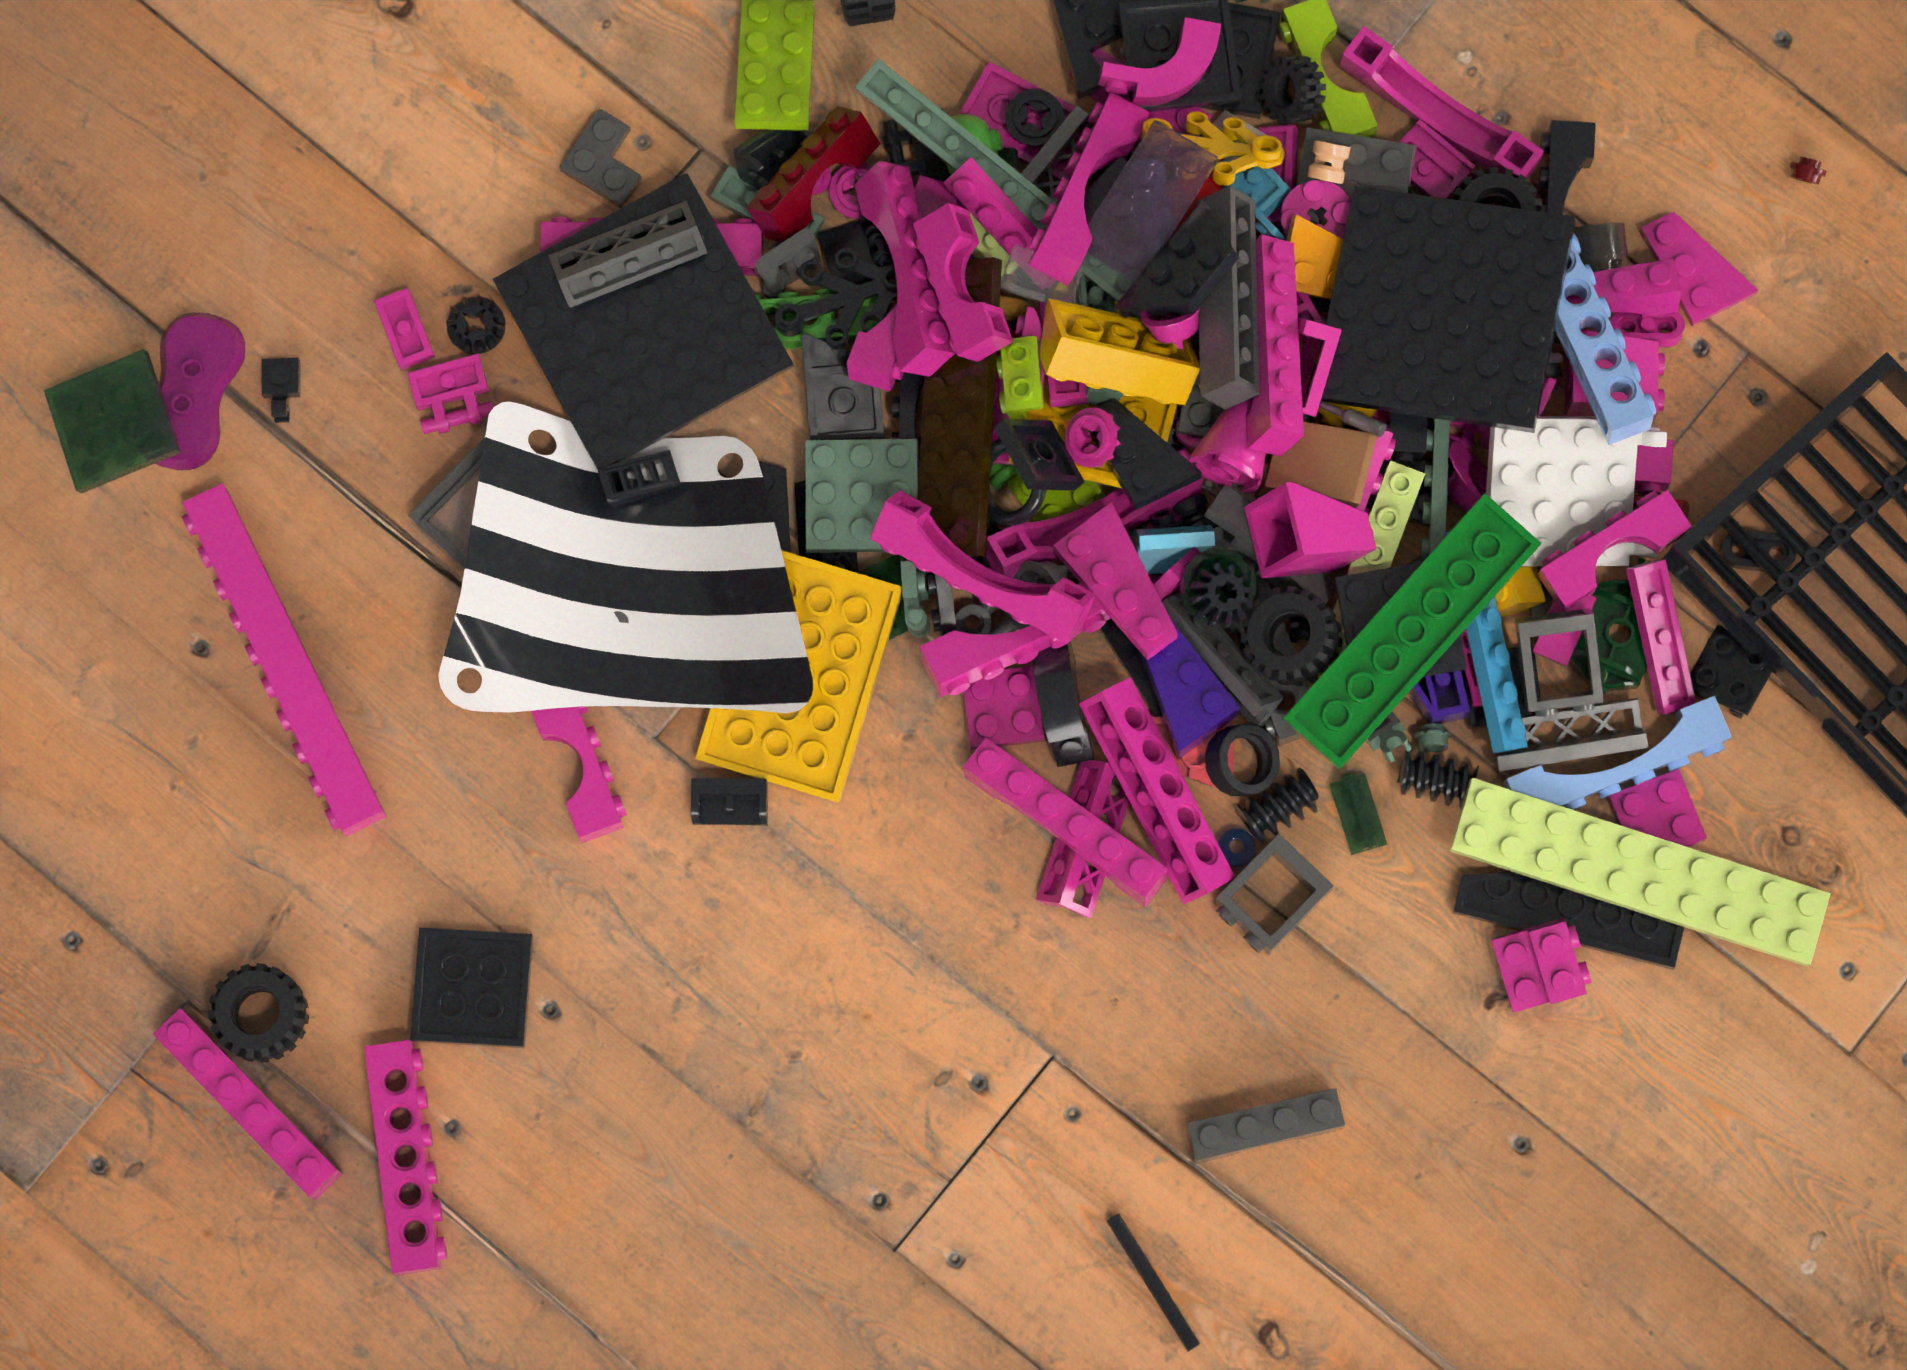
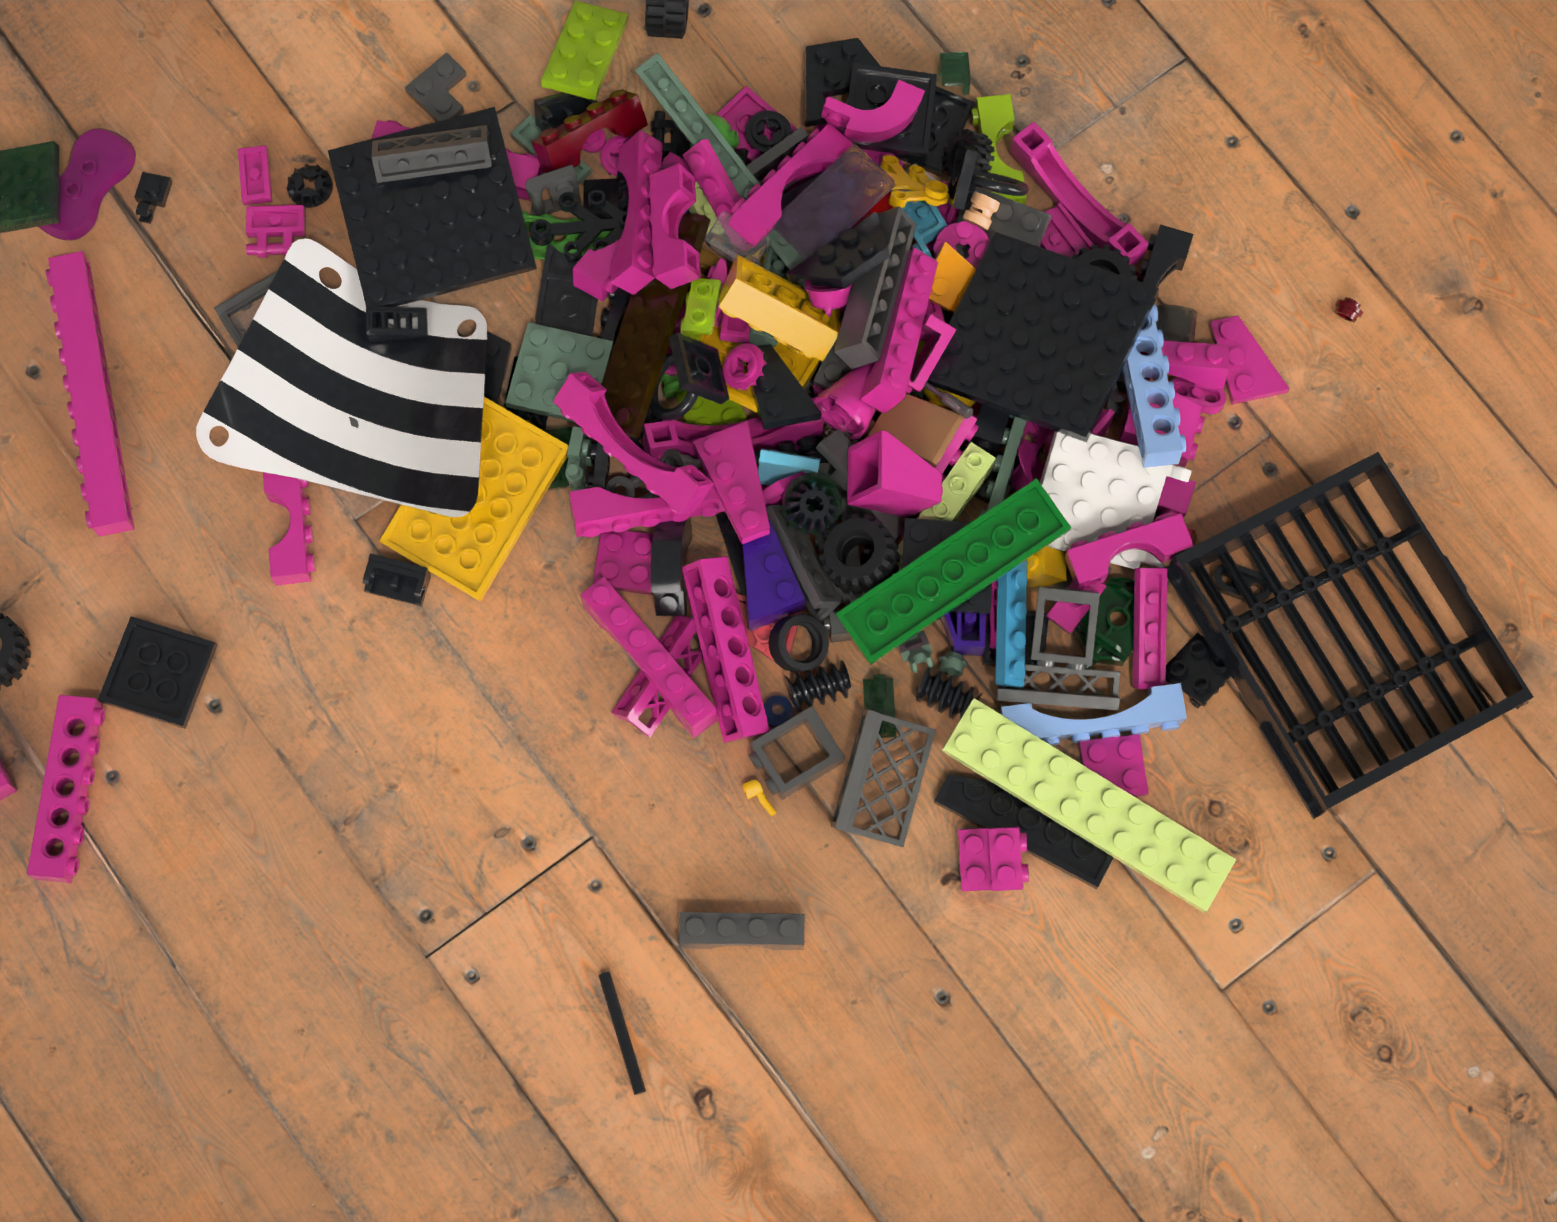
camera: 10 degrees right, 5 degrees down
(1232, 949) = (753, 788): none -> yellow hand
(1299, 122) = (967, 176): none -> black tile
(1353, 893) = (858, 768): none -> dark grey fence

